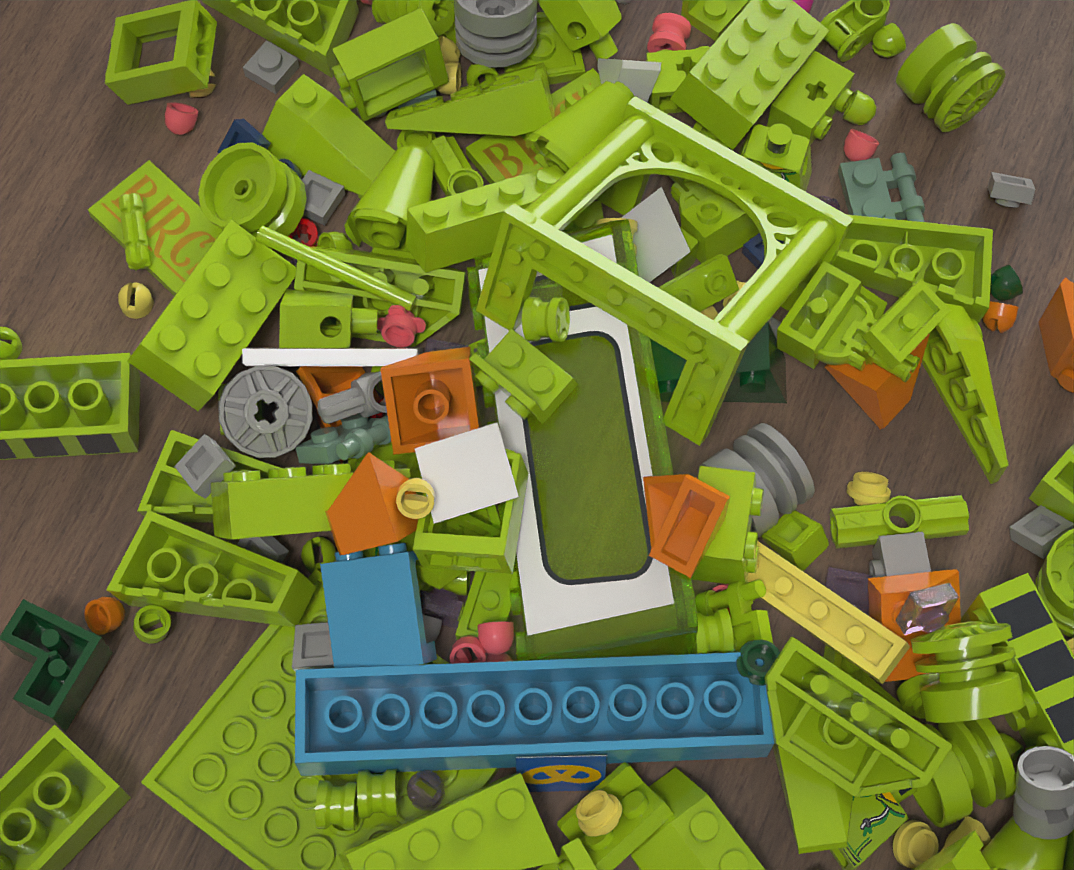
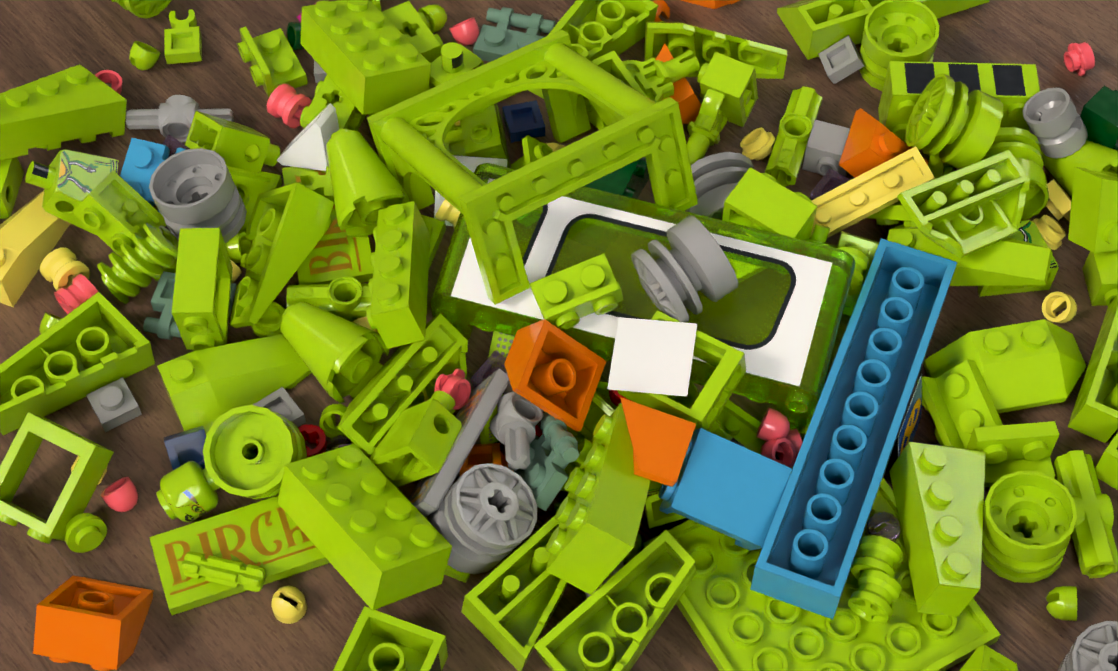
camera: 65 degrees left, 10 degrees down
(51, 157) = (91, 622): none -> orange slope
(131, 109) = (85, 532): none -> lime plate
(192, 160) = (187, 492): none -> lime head
(204, 465) = (523, 573): light grey plate -> none
(312, 647) = (725, 560): light grey plate -> none
(335, 268) = (376, 407): lime bar -> none
(415, 505) = (668, 399): light yellow hinge -> none
(545, 319) = (541, 251): lime wheel -> none
(571, 456) = (690, 267): none -> light grey wheel
(598, 813) = (957, 408): light yellow plate -> none
(682, 519) = (771, 220): orange slope -> none
(750, 653) = (896, 232): dark green plate -> none
(900, 422) = (727, 95): none -> lime brick
(906, 323) = (663, 39): lime plate -> none
(927, 609) = (901, 120): plate -> none

